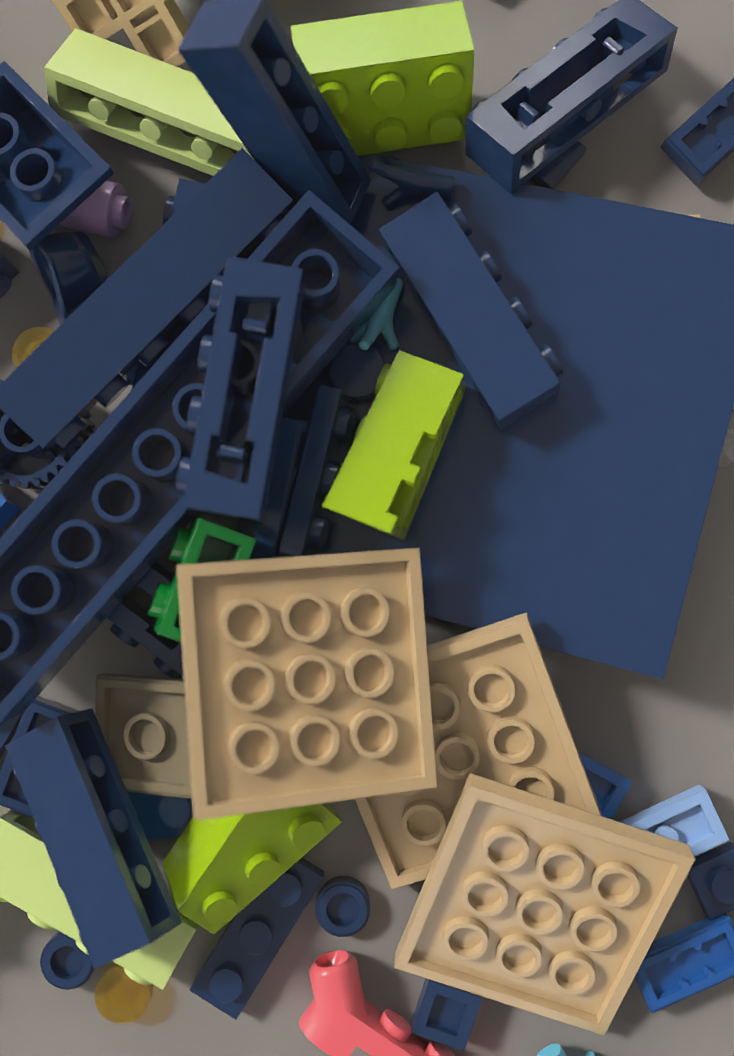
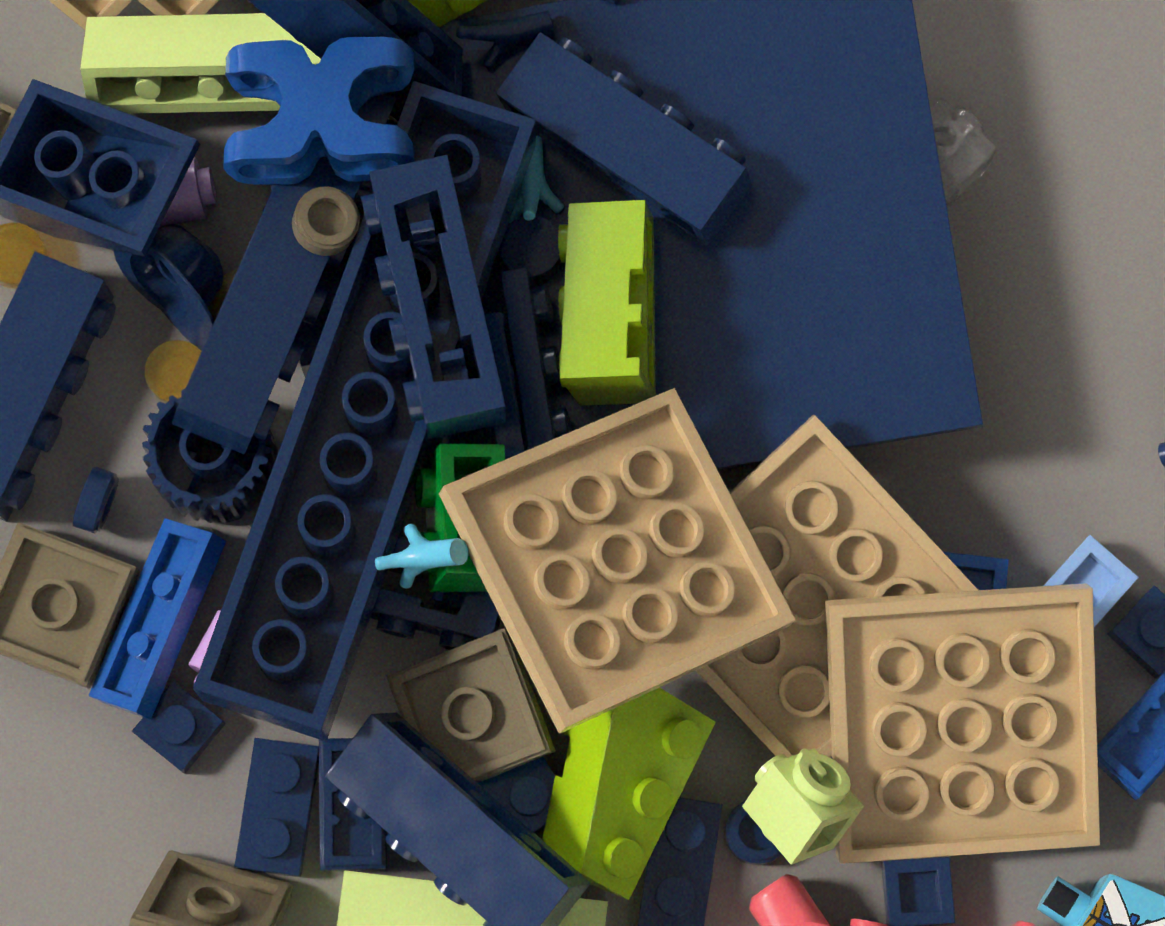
camera: 25 degrees left, 10 degrees down
(145, 610) = (423, 555): none -> medium azure bar
(183, 282) = (325, 221): none -> dark tan tile
(213, 180) = (317, 109): none -> blue piece
(382, 920) = (802, 804): none -> yellowish green brick

